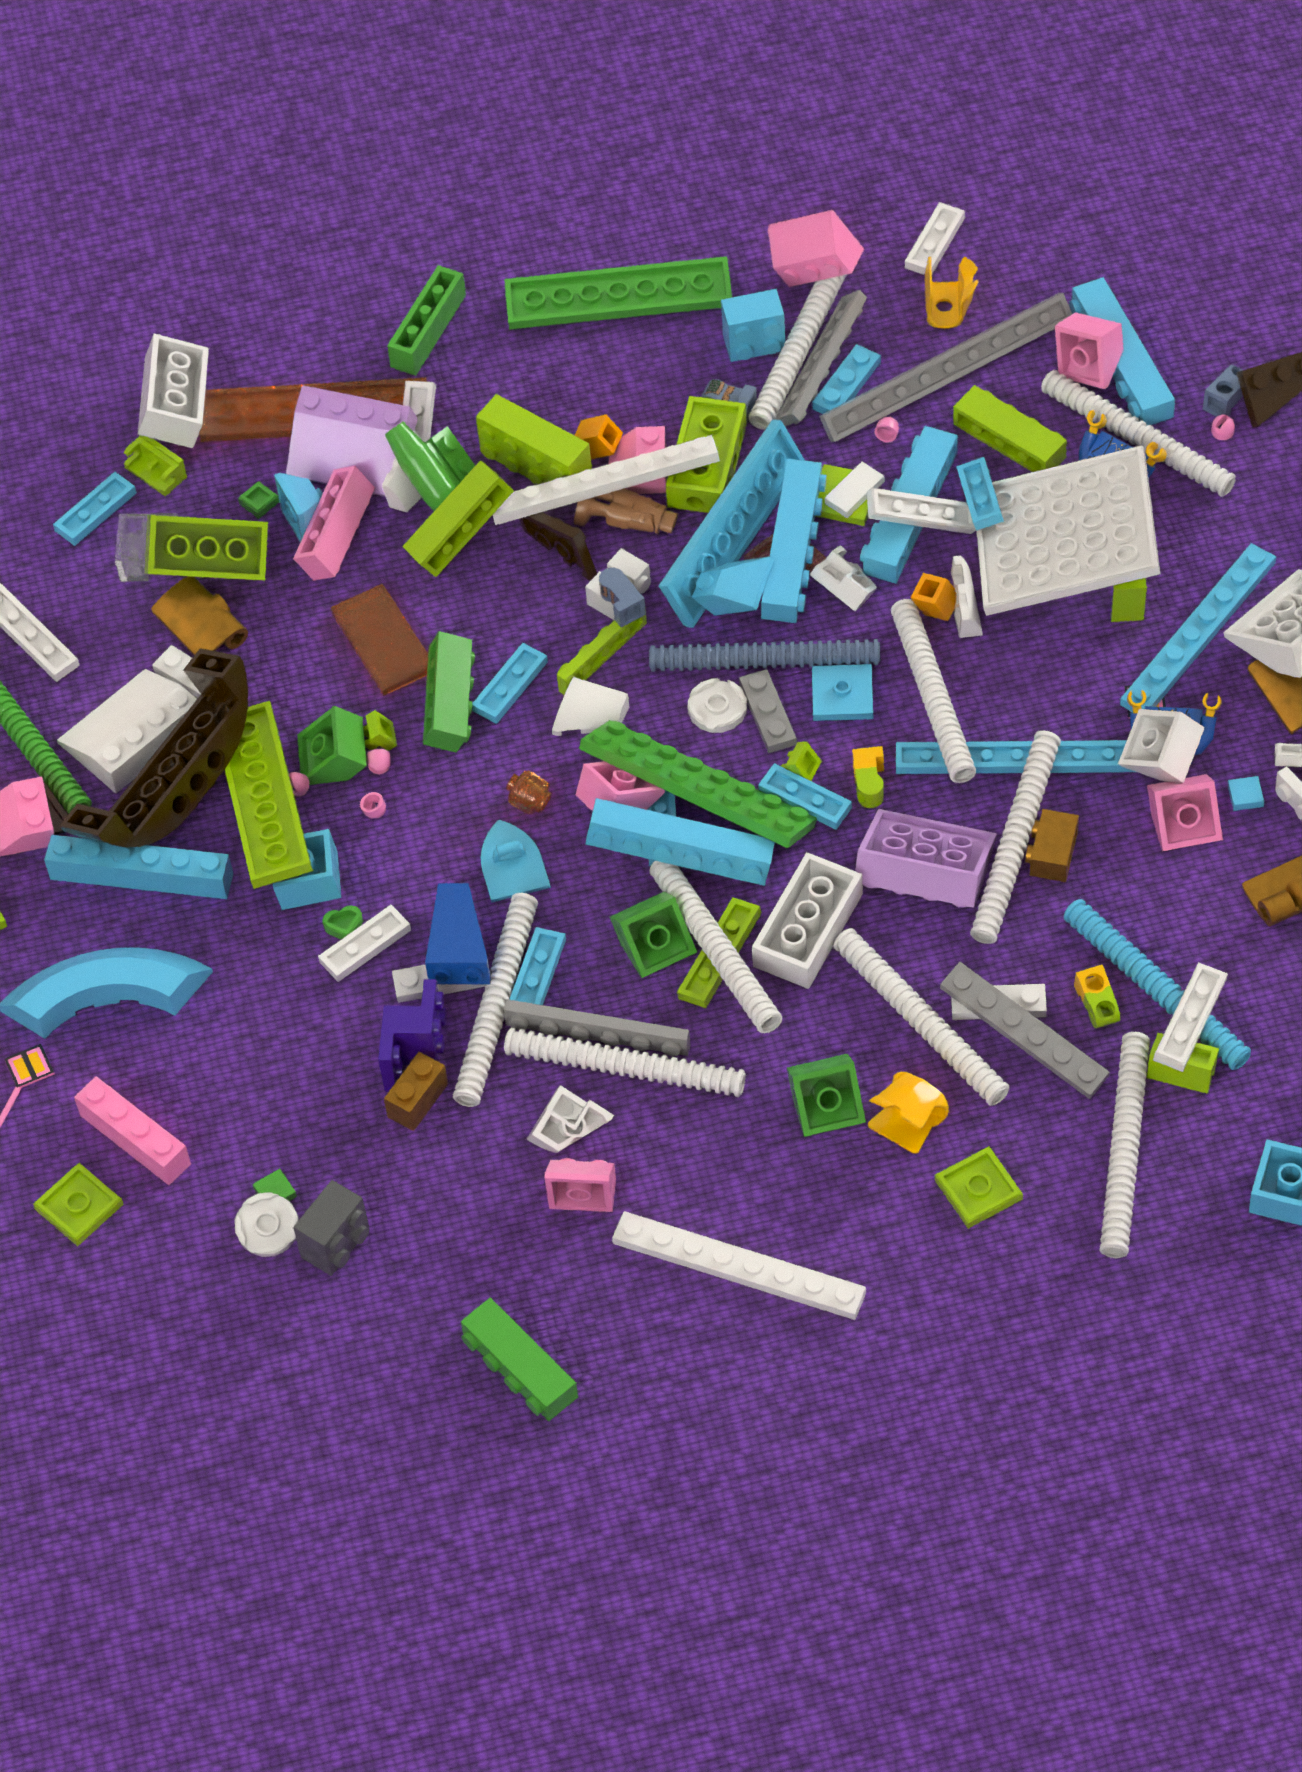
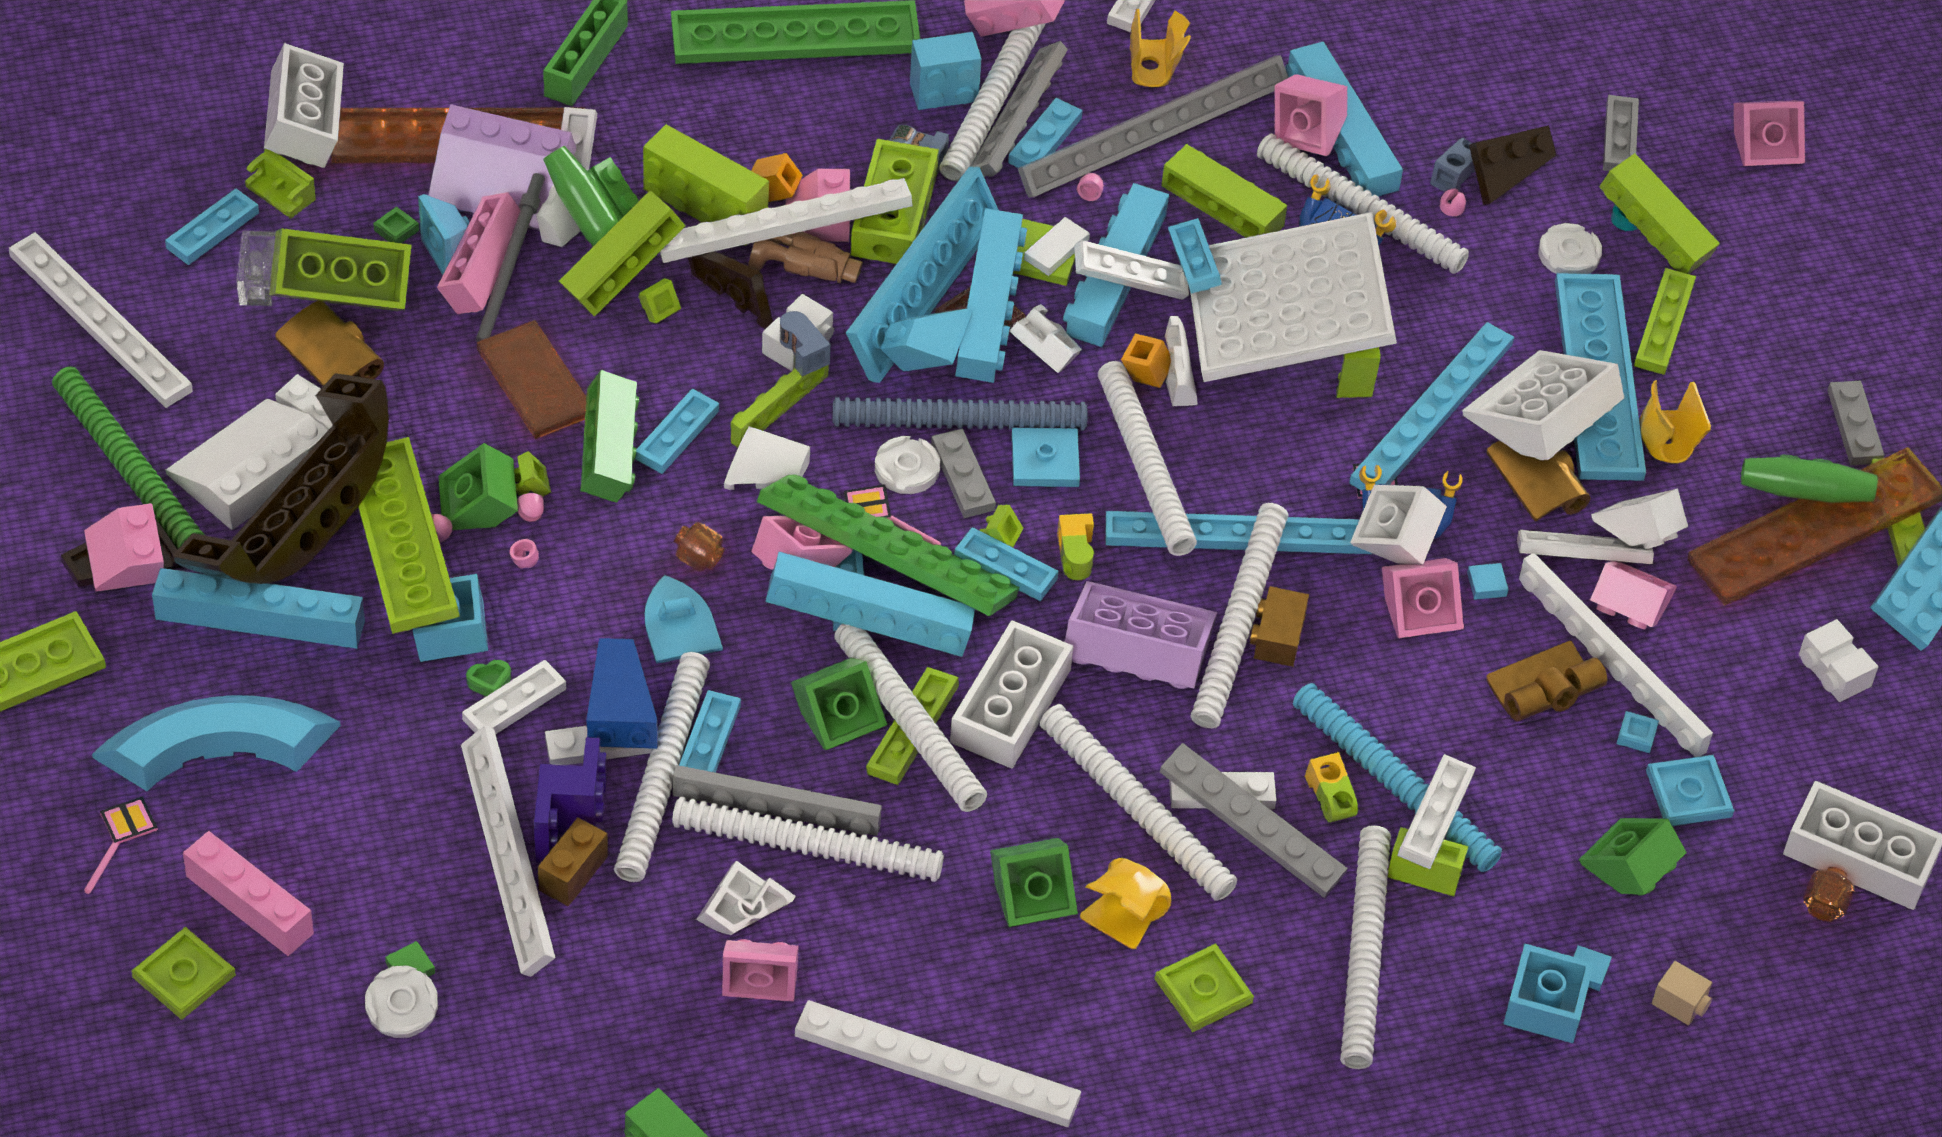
camera: 10 degrees left, 5 degrees down
(332, 1228) = (477, 1006): dark grey brick -> none
(359, 1083) = (507, 852): none -> white plate
(374, 477) = (528, 206): none -> dark grey bar
(494, 560) = (659, 300): none -> lime tile
(687, 742) = (876, 503): none -> piece

